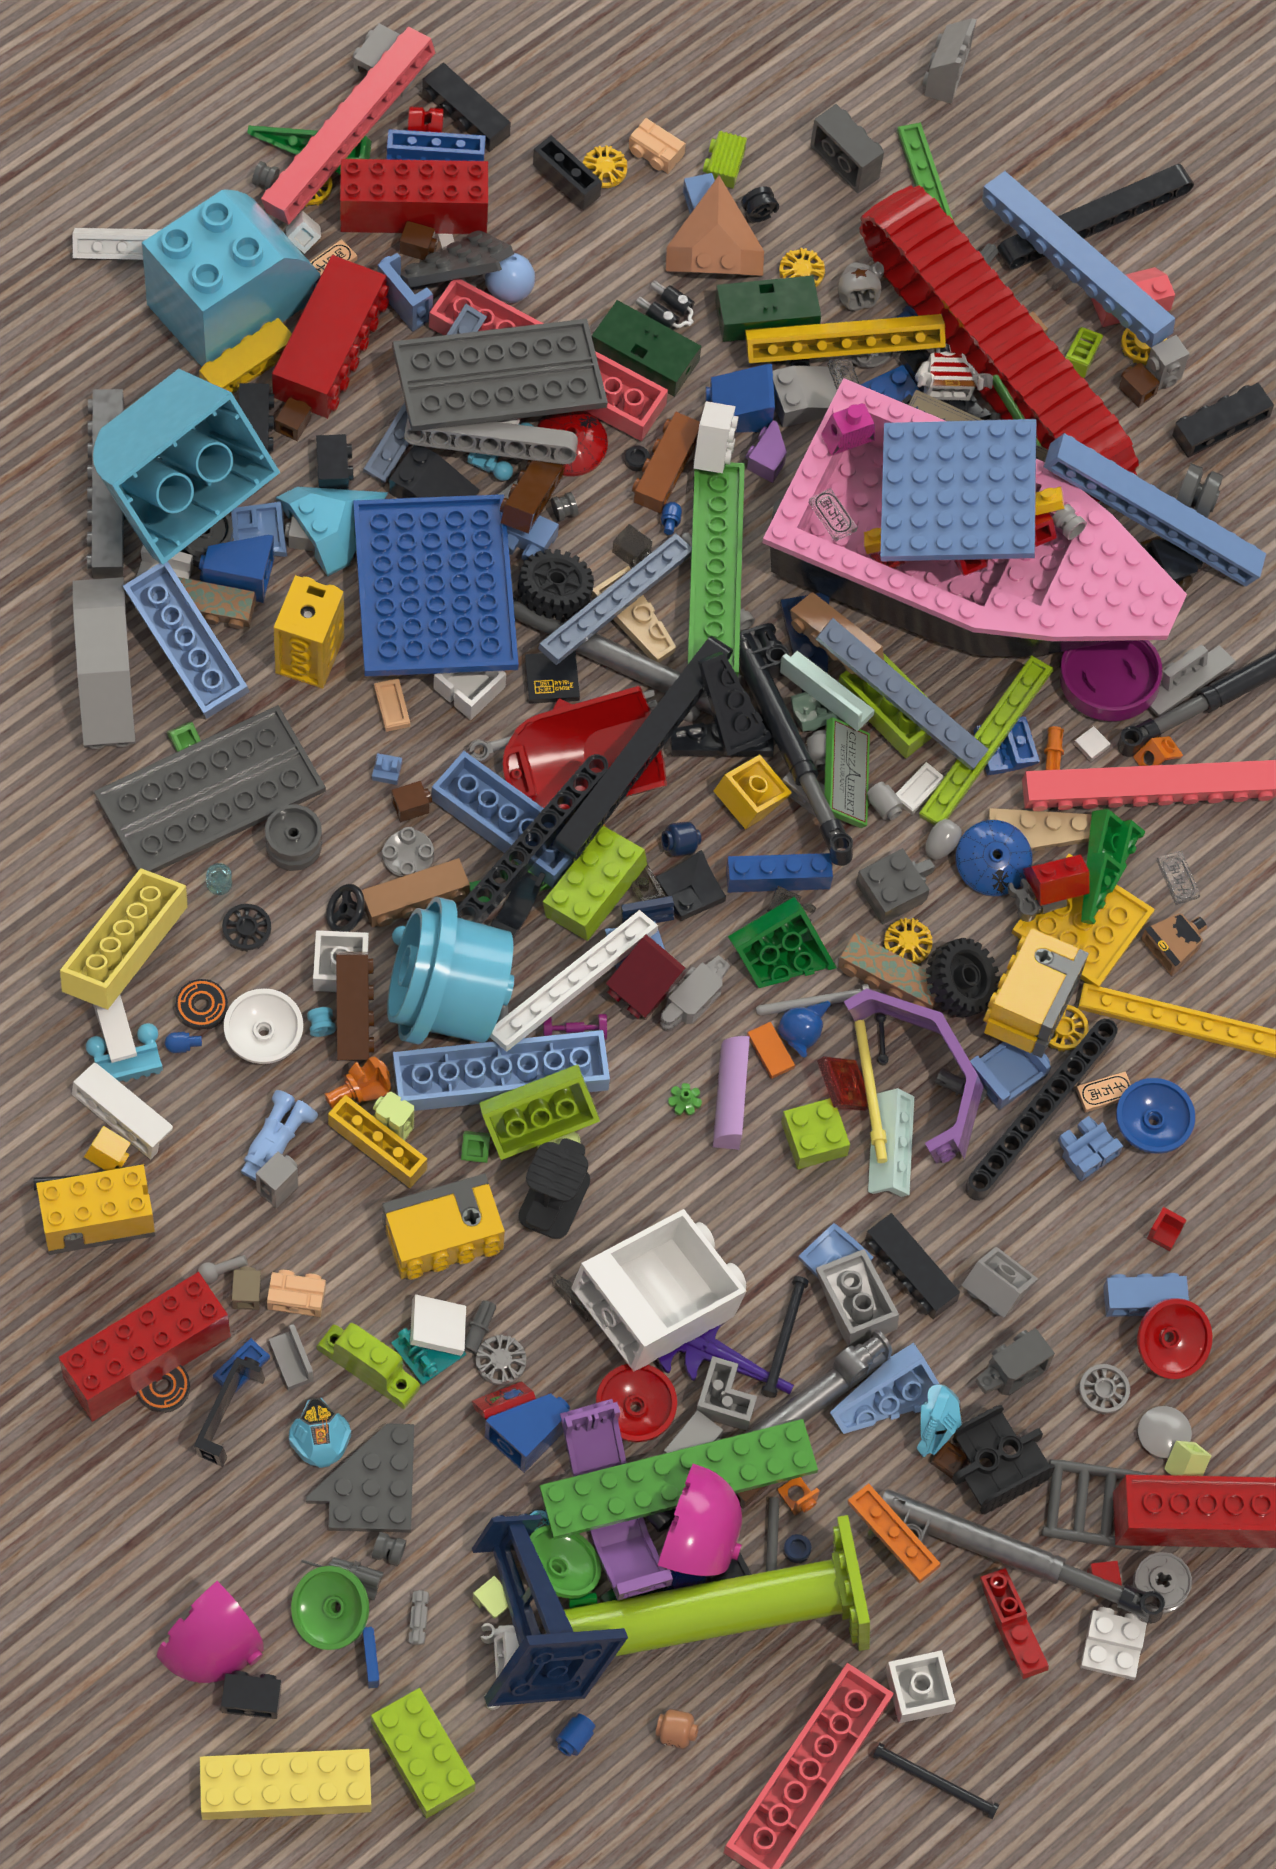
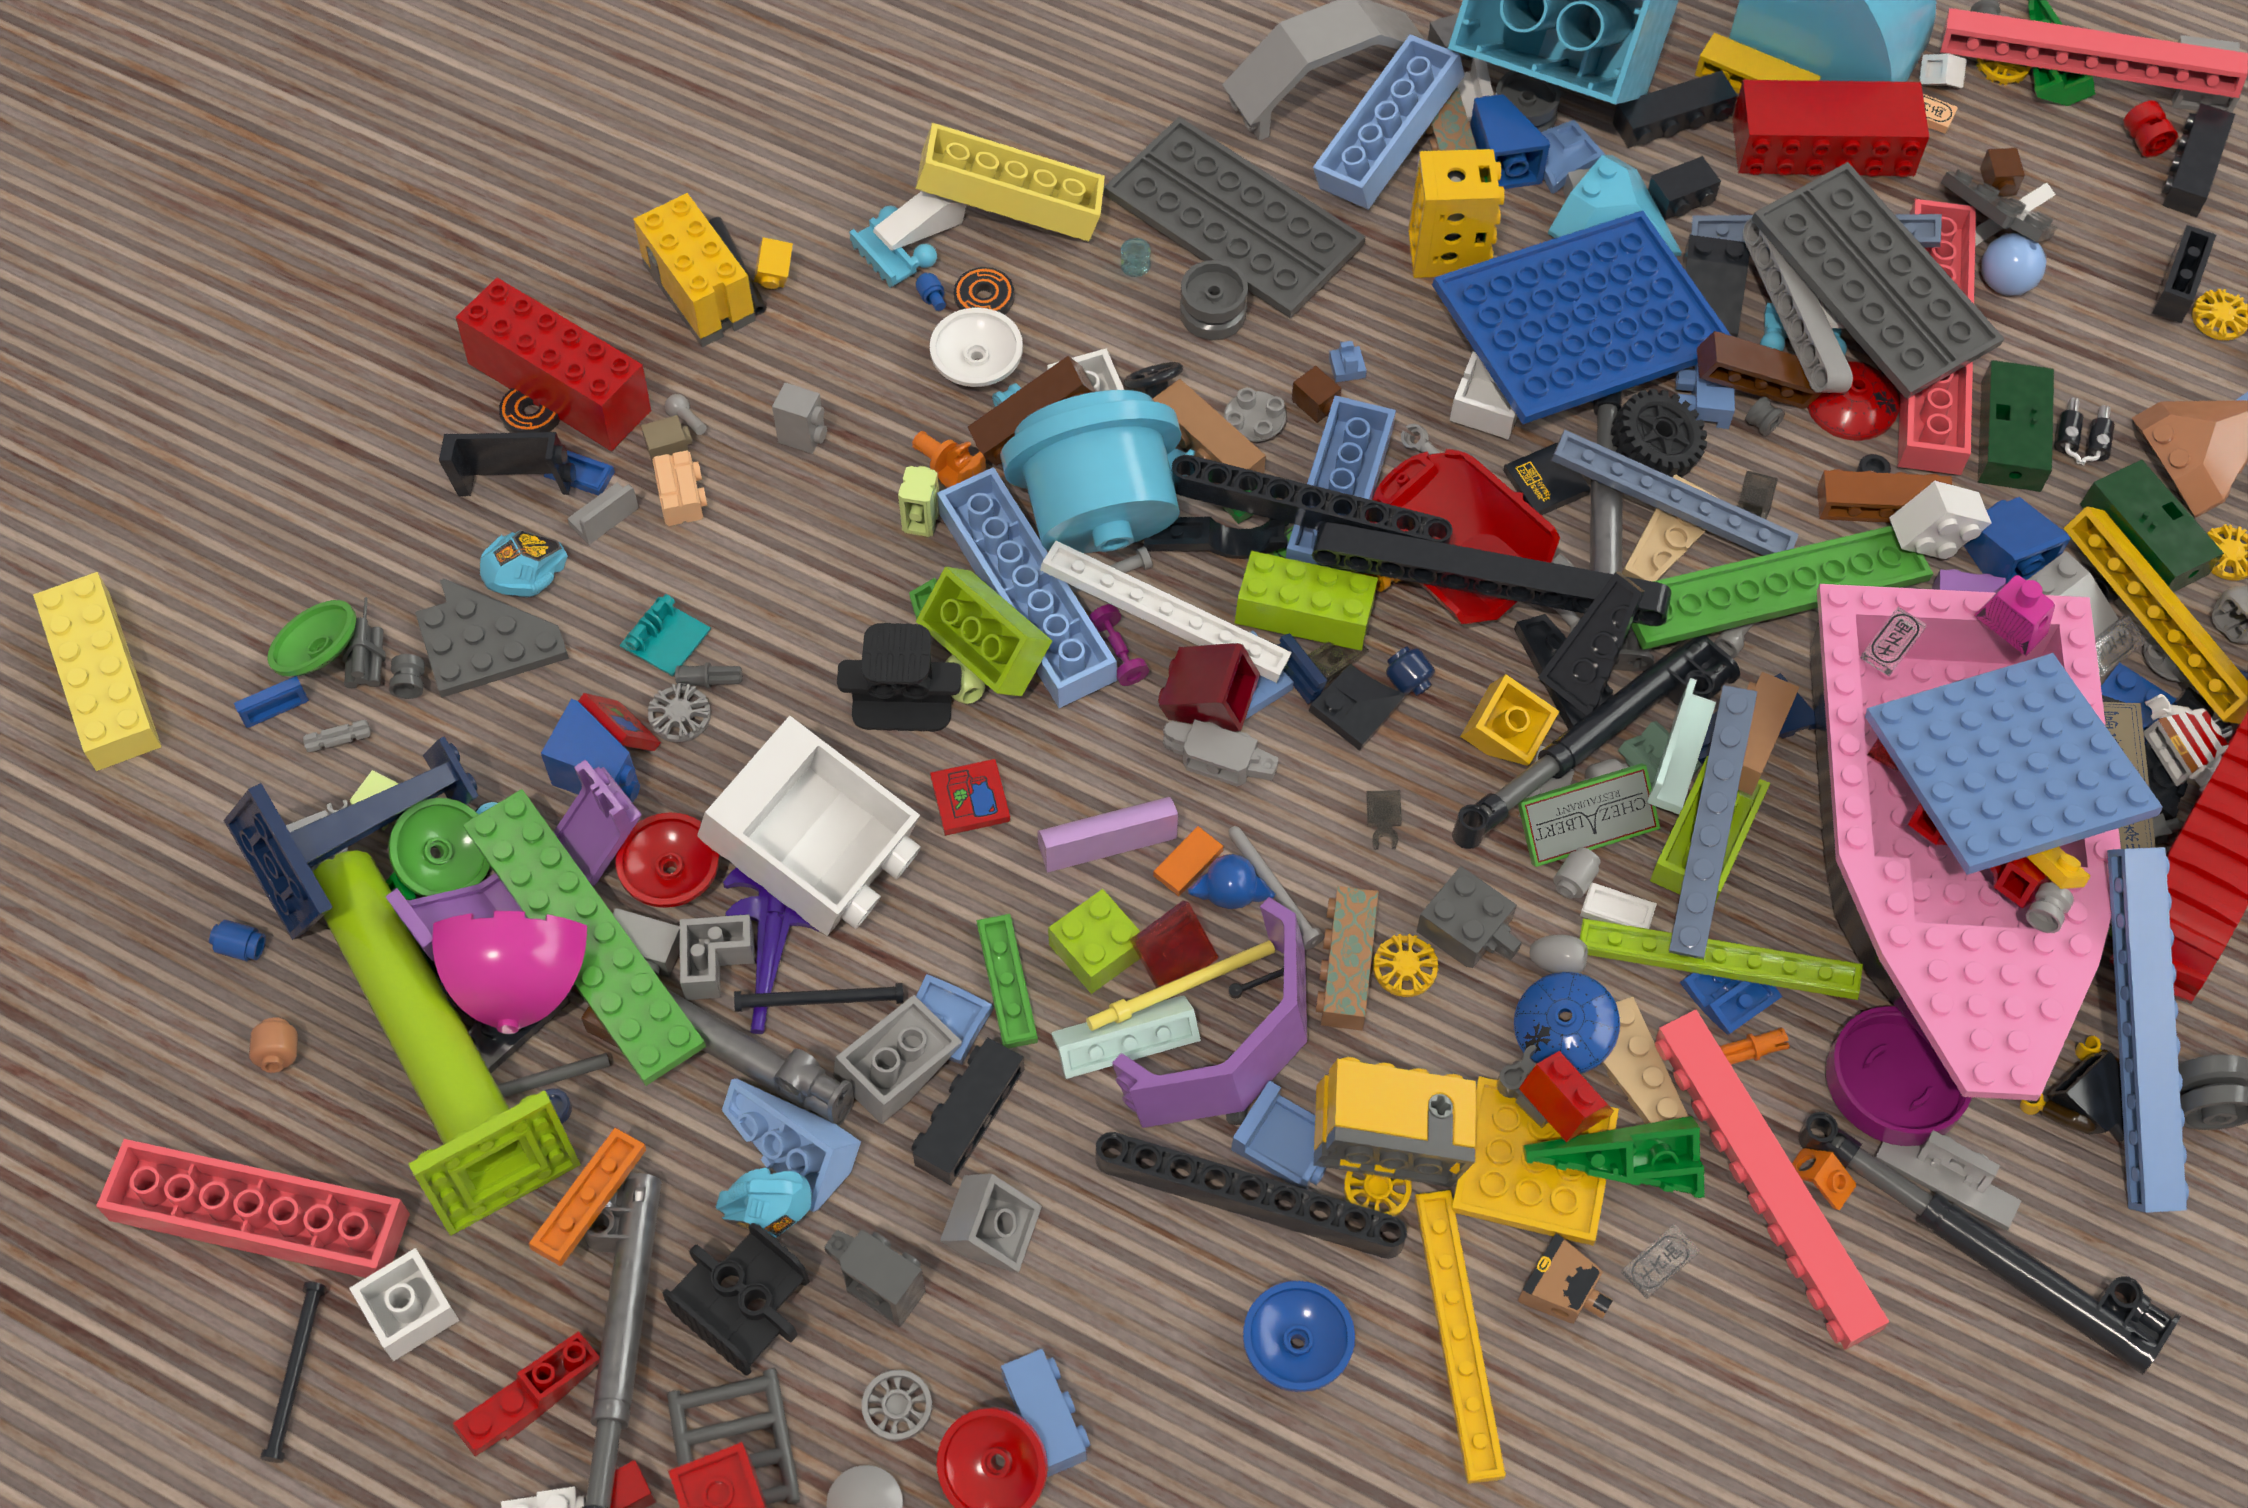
camera: 75 degrees right, 5 degrees down
(121, 1109) = (826, 260): white panel -> none
(183, 736) = (1287, 173): bright green slope -> none
(211, 1639) = (246, 540): dark pink brick -> none
(246, 927) = (1093, 302): black wheel -> none
(251, 1695) = (193, 605): black brick -> none
(274, 1134) = (856, 405): light blue piece -> none
(293, 419) = (1715, 138): reddish brown brick -> none
(370, 1362) = (615, 579): lime brick -> none
(377, 1141) = (880, 508): yellow brick -> none
(392, 705) = (1427, 343): light nougat tile -> none
(411, 307) = (1931, 164): medium blue panel -> none
(423, 1753) = (169, 790): lime brick -> none
(432, 193) = (2063, 152): red brick -> none
(434, 146) = (2115, 151): blue brick -> none
(438, 1325) = (690, 630): white tile -> none
(443, 1227) = (807, 591): yellow piece -> none
(658, 1178) = (970, 797): none -> red tile
(671, 517) = (1819, 526): blue cylinder -> none
(685, 1099) = (1083, 792): bright green plant -> none
(781, 946) = (1324, 822): green wedge -> none
(787, 871) = (1418, 784): blue brick -> none
(804, 1504) = (612, 1093): orange bracket -> none
(817, 1207) = (1007, 981): none -> bright green tile
(949, 1459) = (726, 1240): reddish brown tile -> none
(962, 977) = (1377, 1004): black wheel -> none
(1089, 1151) = (1220, 1273): medium blue hips -> none
(1092, 743) = (1791, 1090): white tile -> none
(1102, 1091) = (1309, 1264): light nougat tile -> none
(1166, 1229) = (1148, 1406): red panel -> none

